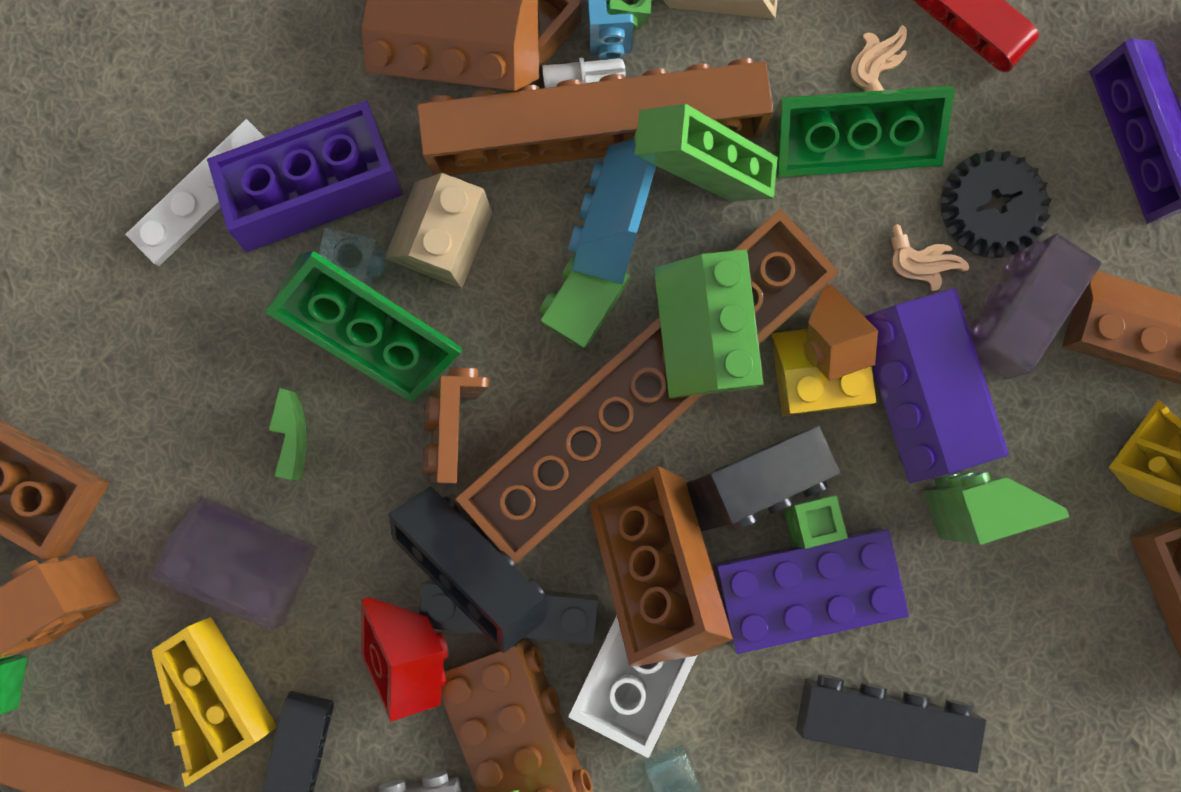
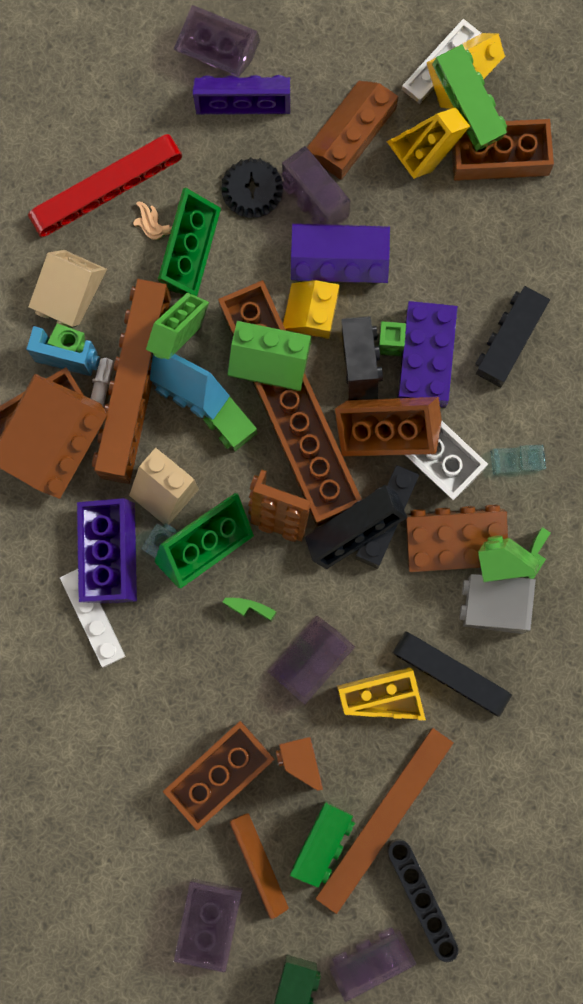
camera: 70 degrees left, 5 degrees down
(402, 658) = (392, 580): red slope -> none
(839, 336) = (297, 291): dark orange slope -> none
(923, 264) = (271, 237): light nougat piece -> none
(987, 508) = (412, 247): bright green slope -> none

